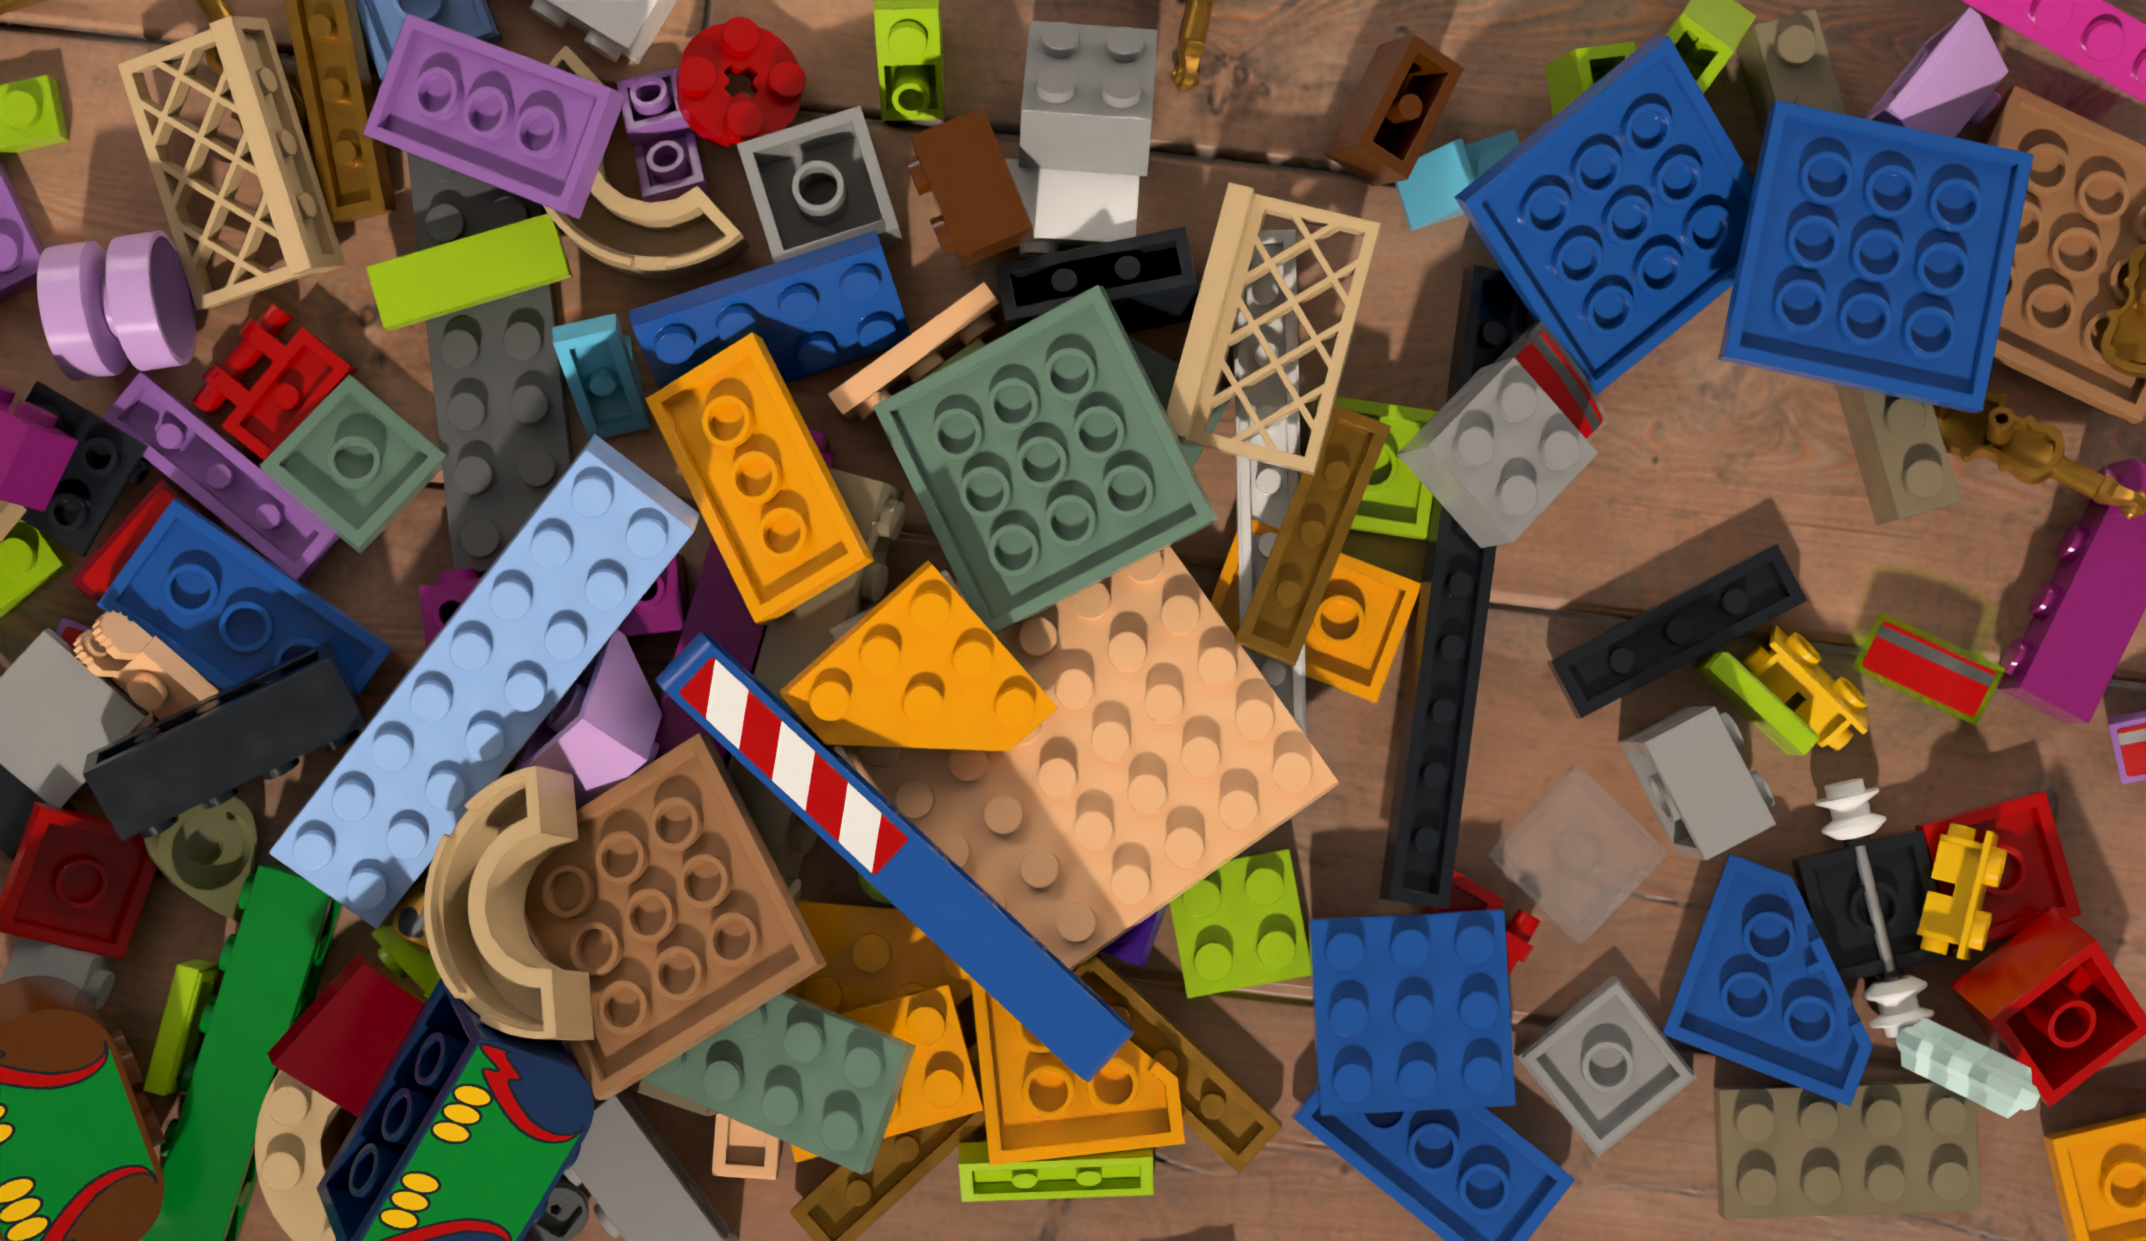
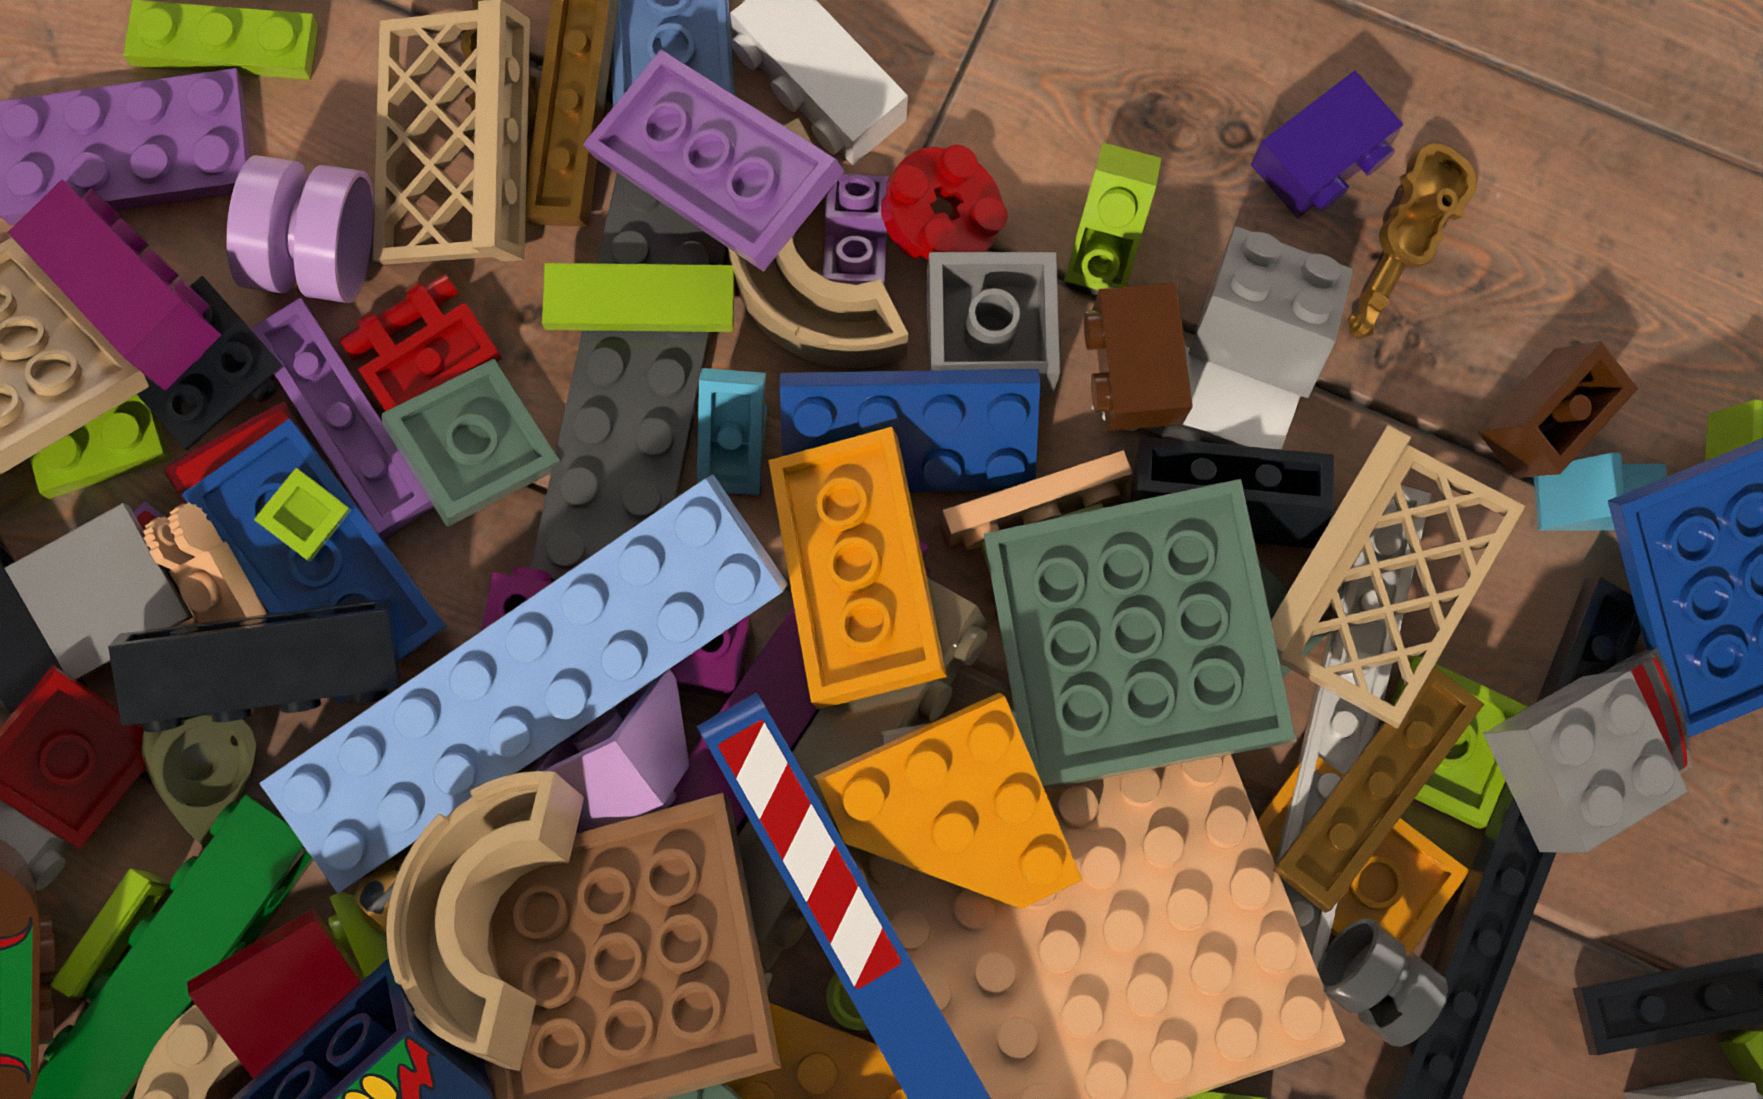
camera: 15 degrees right, 10 degrees down
(219, 589) = (302, 514): none -> lime plate
(1367, 717) = (1381, 982): none -> dark grey wheel

